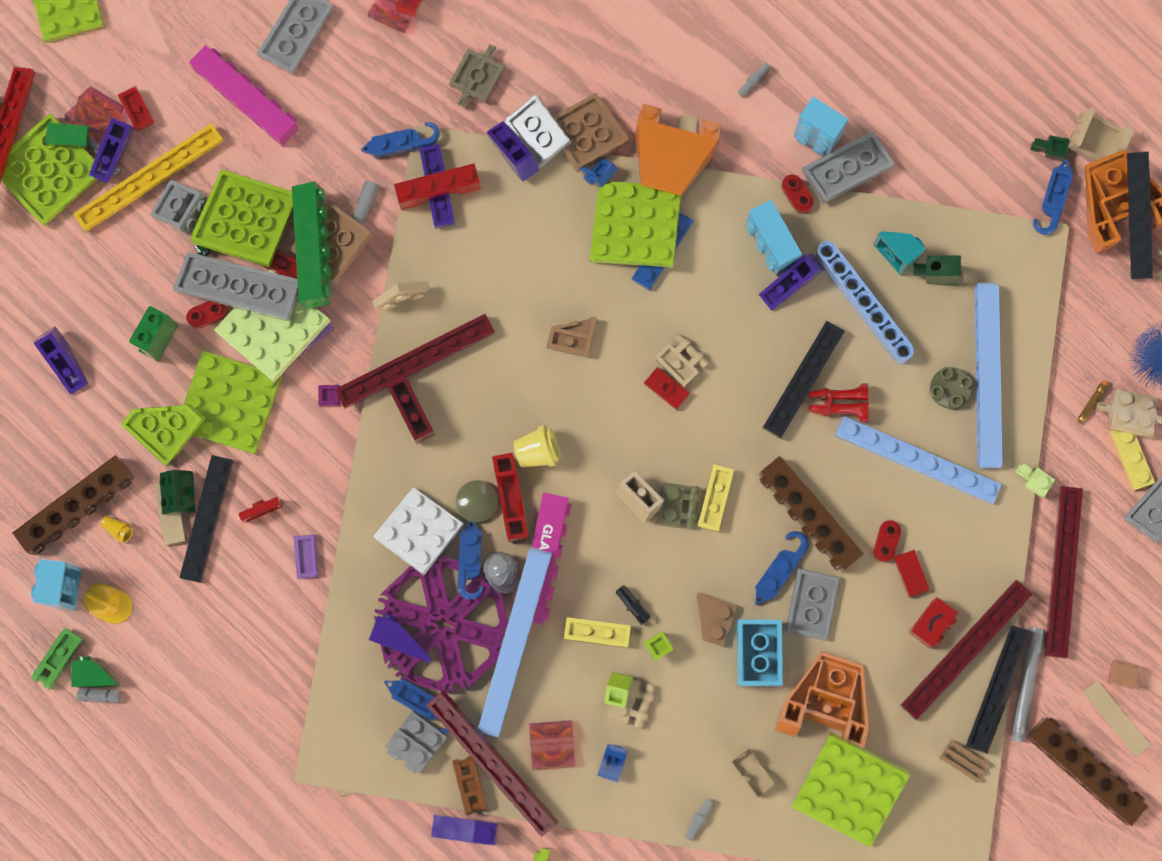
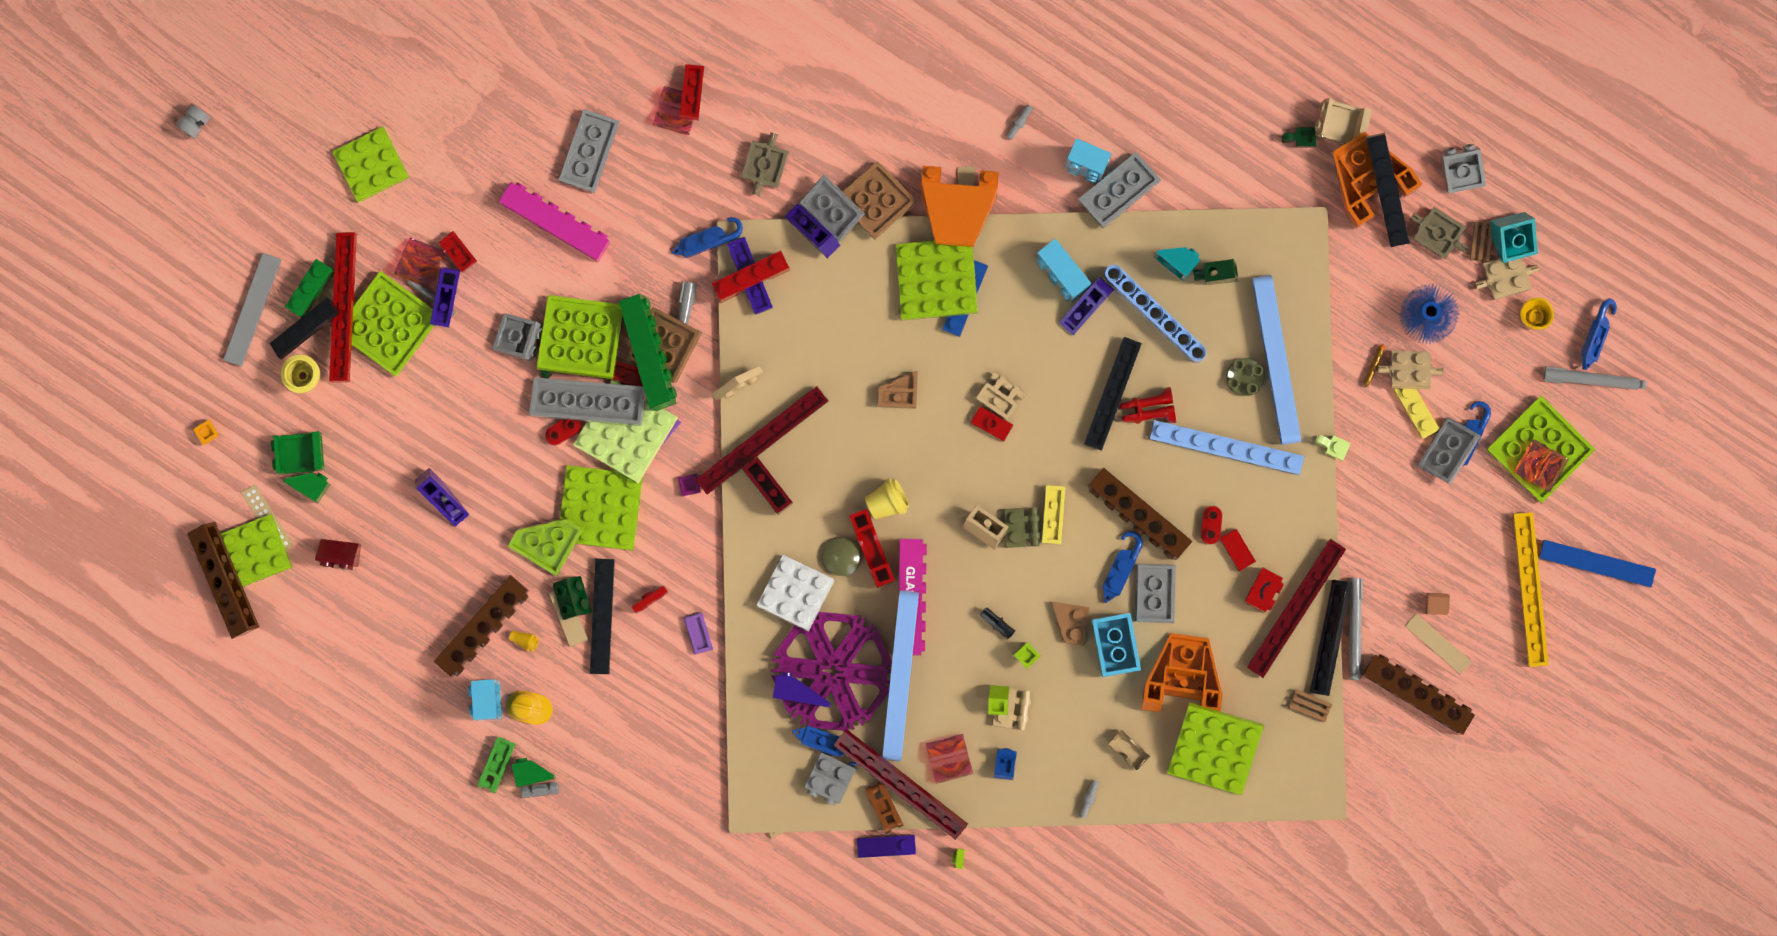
camera: 15 degrees left, 5 degrees up
(67, 135) = (402, 289): green tile -> none
(148, 177) = (483, 314): yellow plate -> none
(153, 333) = (521, 459): green panel -> none
(469, 559) = (845, 610): blue plate -> none
(501, 572) = (876, 616): light grey piece -> none
(597, 632) = (970, 653): light yellow plate -> none
(600, 173) = (895, 237): blue bracket -> none
(796, 193) = (1077, 223): red plate -> none
(1055, 197) = (1311, 184): blue plate -> none
(1063, 572) = (1371, 523): dark red plate -> none

